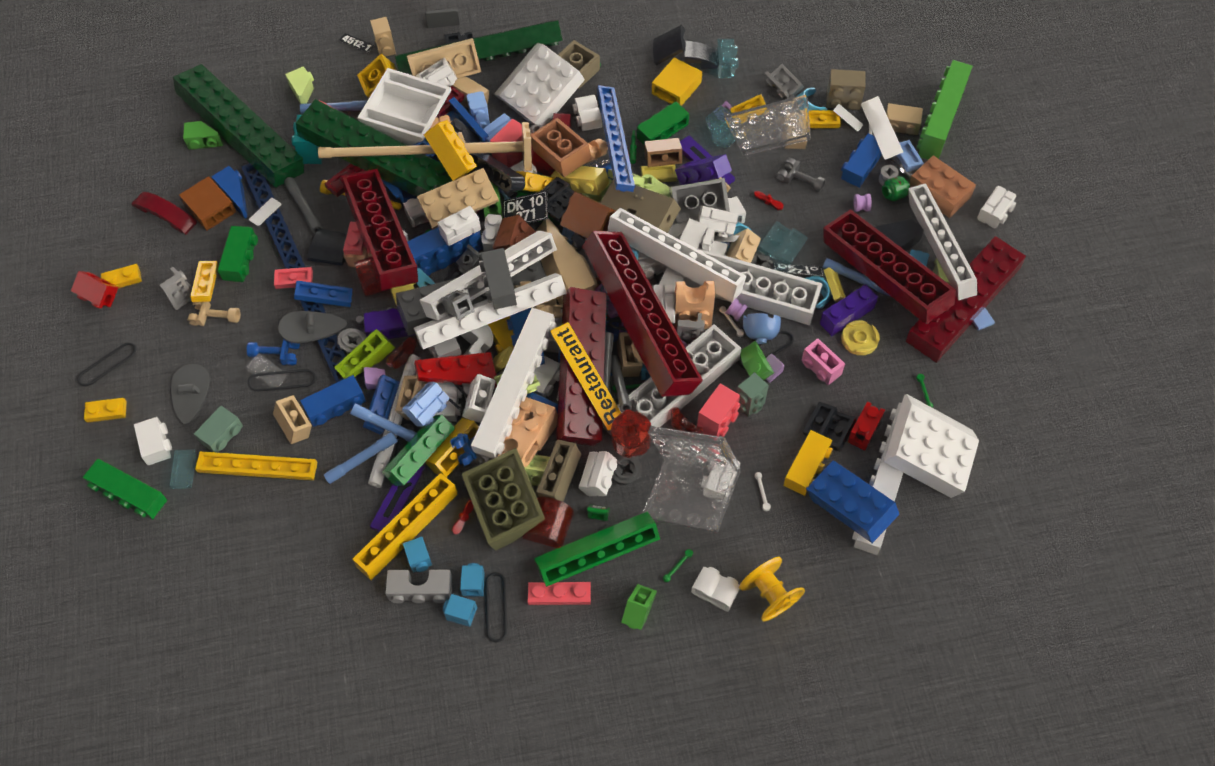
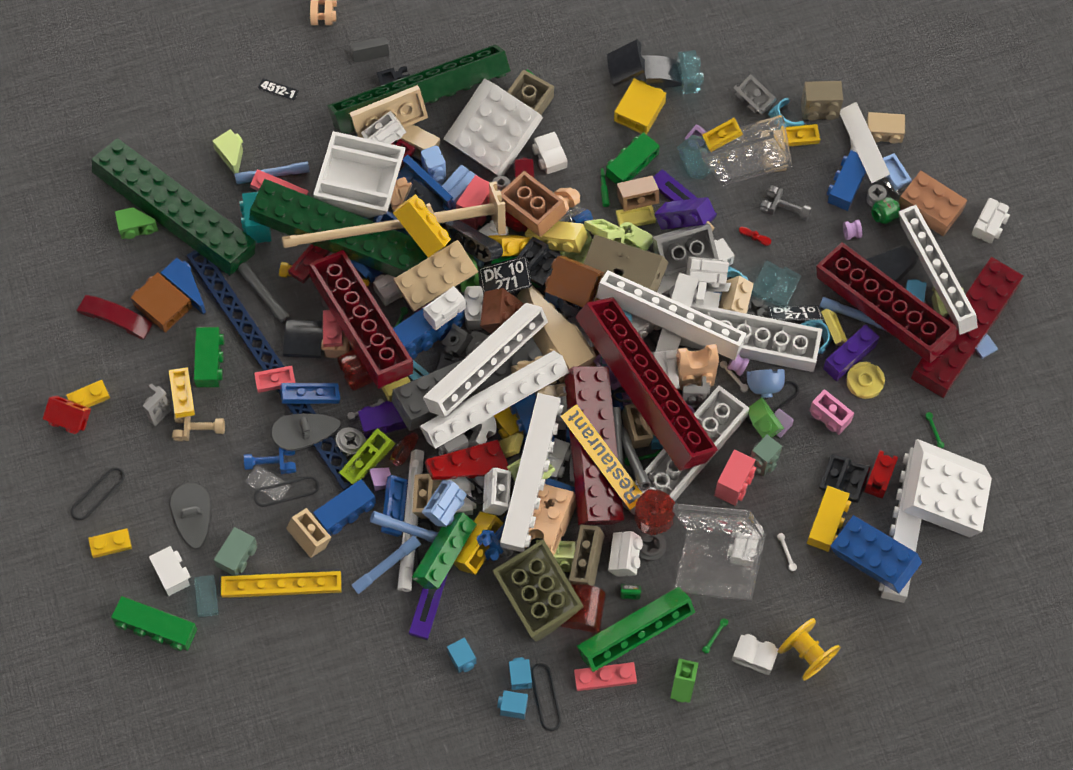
camera: 10 degrees left, 5 degrees up
(265, 211) = (225, 305): white sticker -> none
(372, 74) = (315, 134): yellow slope -> none
(383, 36) = (311, 84): tan brick -> none
(405, 526) = (445, 629): yellow brick -> none
(435, 589) = (486, 687): light grey arch -> none
(458, 304) = (465, 399): dark grey brick -> none
(463, 517) = (499, 612): red piece -> none
(497, 278) = (500, 368): dark grey brick -> none
(615, 139) = (587, 186): plate -> none
(678, 418) = (695, 486): clear red helmet -> none
(848, 117) = (827, 130): white sticker -> none
(943, 110) = (927, 115): bright green brick -> none

